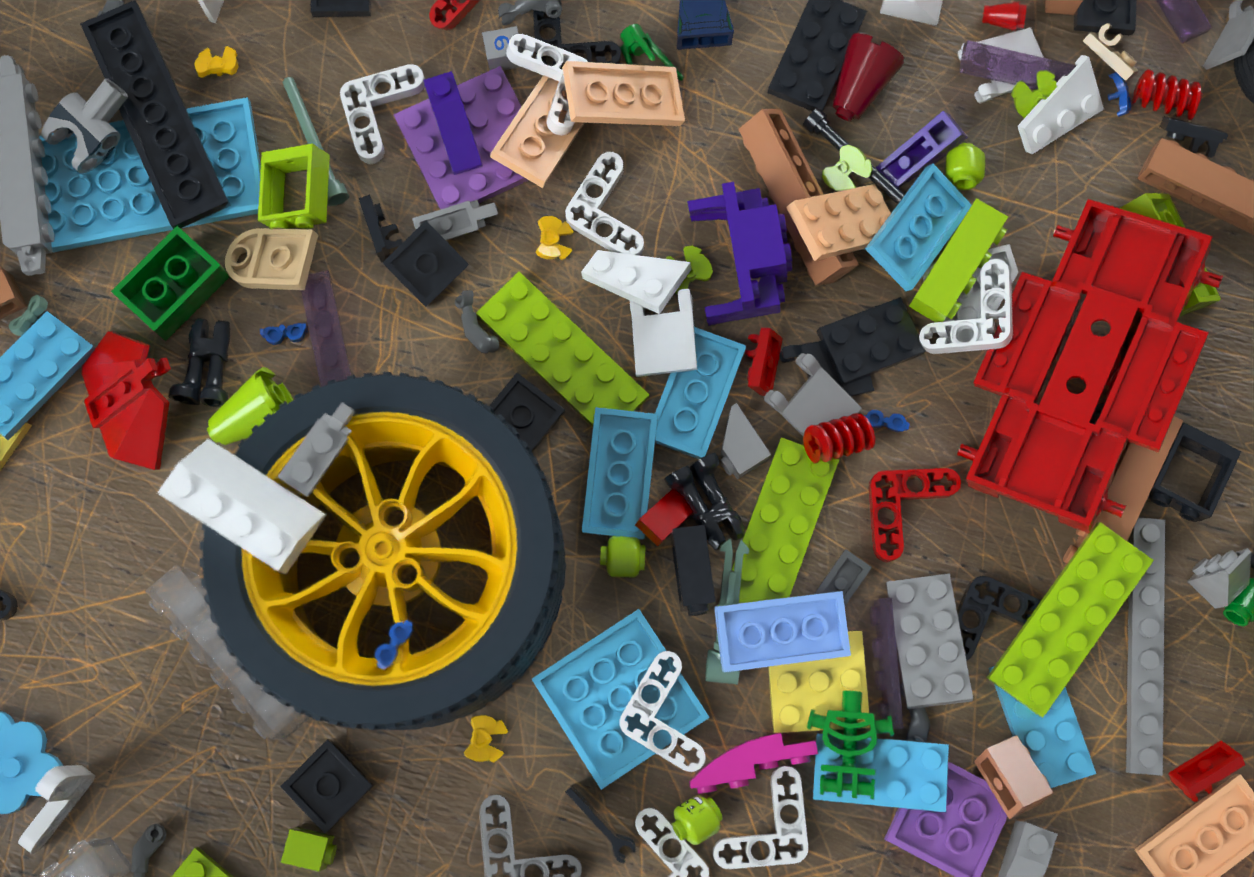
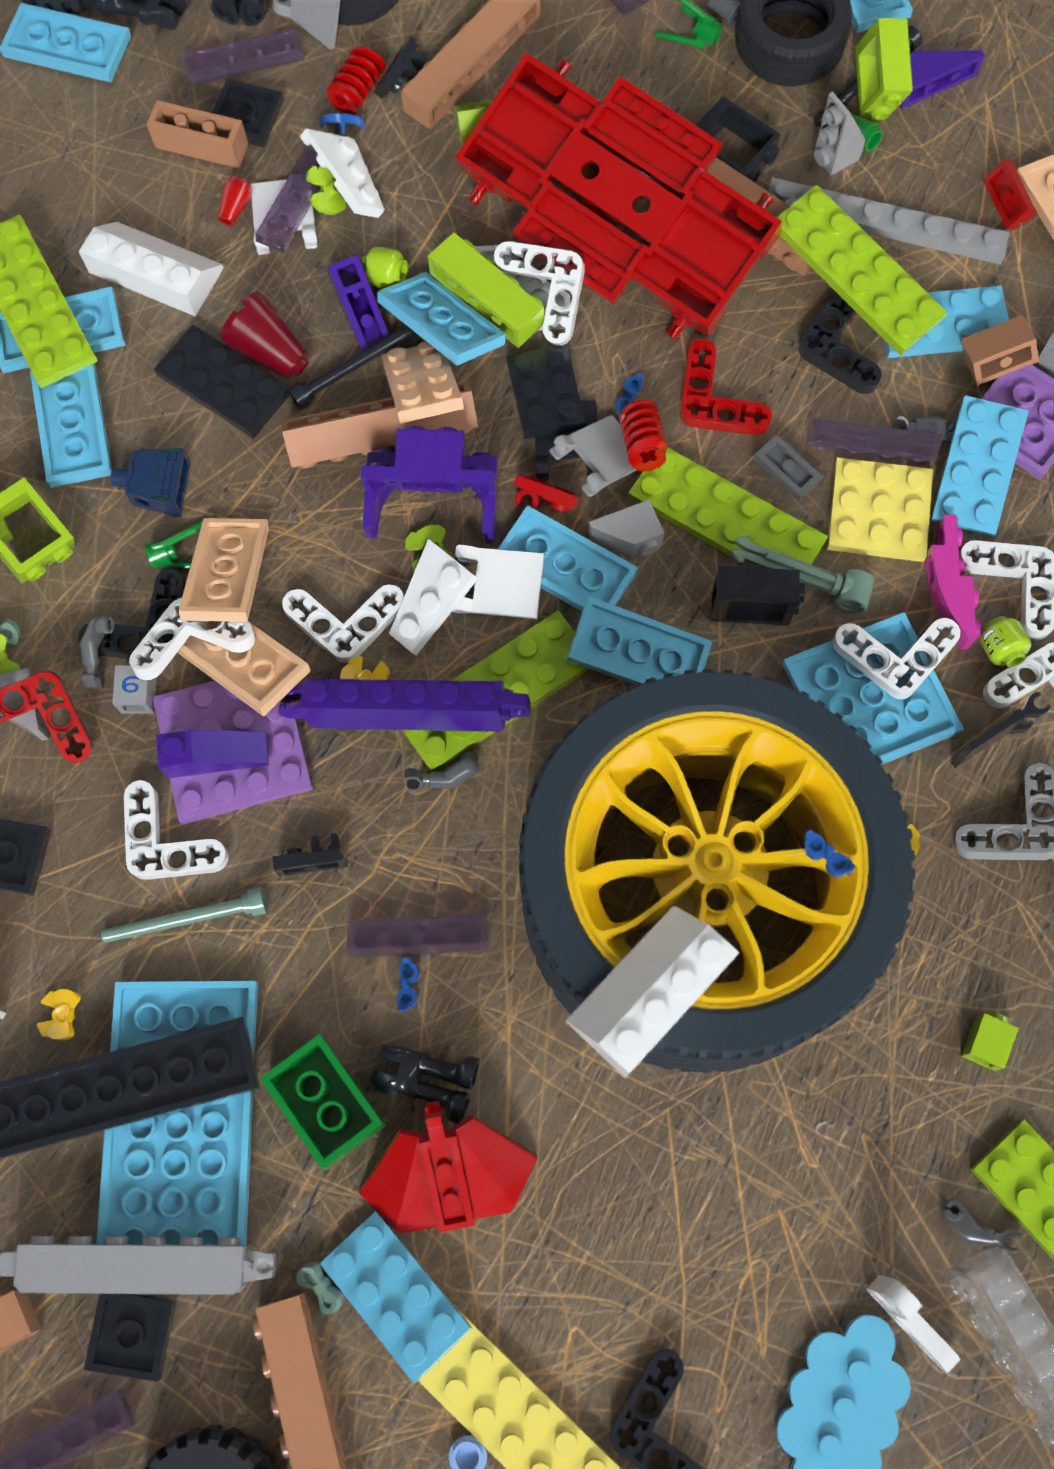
camera: 75 degrees left, 5 degrees down
(89, 124) = (101, 1169): light grey connector -> none
(182, 600) = (771, 1089): clear brick -> none
(247, 408) = (495, 1030): lime cone -> none
(272, 182) = (207, 938): lime window -> none
(273, 258) = (320, 980): tan plate -> none
(318, 451) = (601, 901): light grey hinge -> none
(327, 786) = (924, 1012): black plate -> none
(425, 263) = (365, 811): black plate -> none
(458, 219) = (322, 777): light grey hinge -> none
(523, 275) = (405, 704): none -> dark purple hinge
(527, 410) = (543, 731): black plate -> none
(623, 556) = (728, 655): lime head -> none
(664, 516) = (694, 614): red tile -> none
(721, 510) = (700, 569): black piece -> none
(782, 631) = (833, 522): light blue plate -> none
(851, 160) = (353, 368): lime piece -> none
(851, 713) = (921, 475): green piece -> none
(929, 642) = (859, 395): light grey plate -> none
(1120, 63) = (312, 110): tan plate -> none

